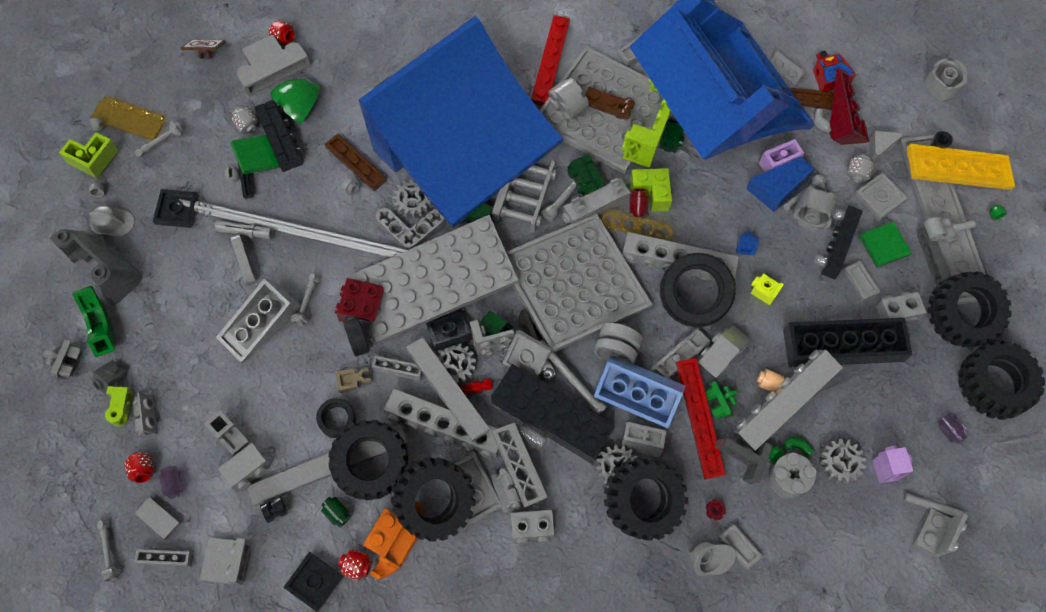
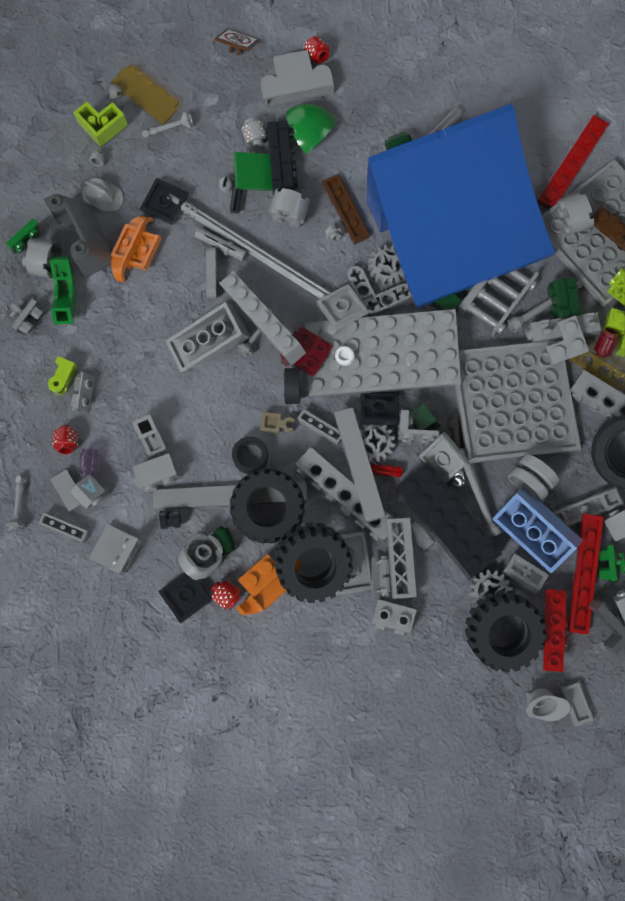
camera: 25 degrees right, 10 degrees up
(38, 283) = (18, 241): none -> green tile
(60, 298) = (38, 256): none -> light grey brick
(107, 376) = (60, 344): dark grey bracket -> none
(157, 260) = (134, 247): none -> orange plate
(178, 511) = (88, 492): none -> light grey brick
(300, 175) = (289, 207): none -> light grey brick
(306, 282) = (262, 318): none -> light grey brick
(316, 534) = (200, 556): none -> light grey brick
(381, 248) = (342, 307): none -> light grey plate
(398, 292) = (344, 355): none -> white tile
(608, 212) = (572, 344): none -> light grey plate
(692, 477) = (555, 628): none -> red bracket
(710, 506) = (571, 663): dark red plate -> none

